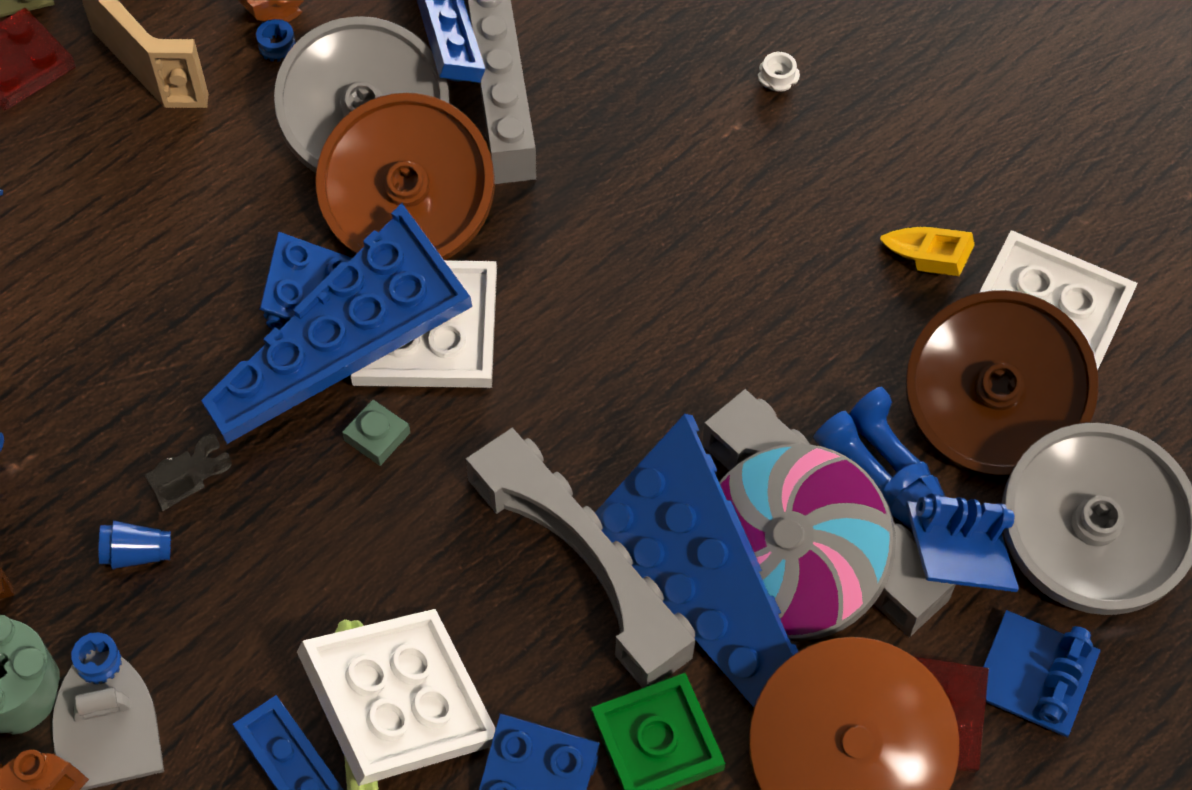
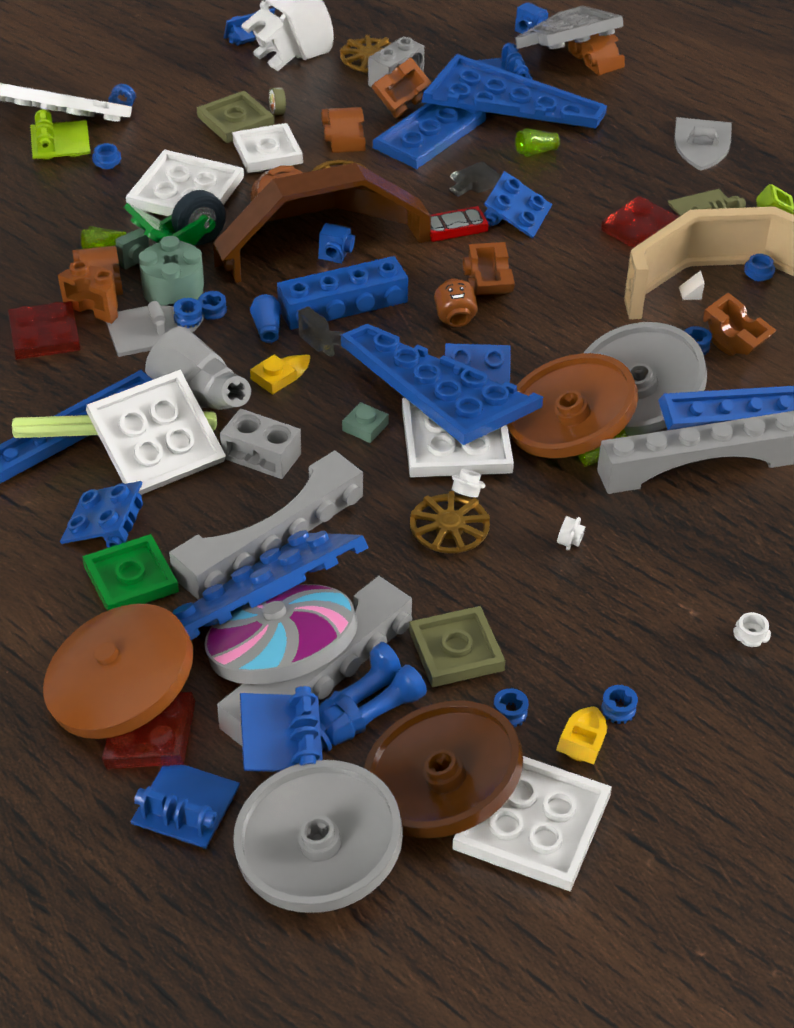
camera: 85 degrees right, 15 degrees down
(60, 622) = (218, 301): none -> blue bush
(93, 246) = (489, 269): none -> dark orange cylinder
(97, 436) = (344, 290): none -> blue brick
(153, 293) = (455, 302): none -> dark orange head
(166, 22) = (692, 288): none -> white piece
(246, 536) = (277, 373): none -> yellow plate
(257, 642) = (205, 371): none -> light grey piece
(426, 564) = (261, 443): none -> light grey brick
(521, 319) = (467, 483): none -> white plate
(582, 348) = (450, 522): none -> pearl gold wheel
(615, 220) = (571, 532): none -> white plate
(798, 359) = (456, 646): none -> olive plate
(877, 222) = (615, 713): none -> blue bush
(898, 323) = (520, 701): none -> blue bush

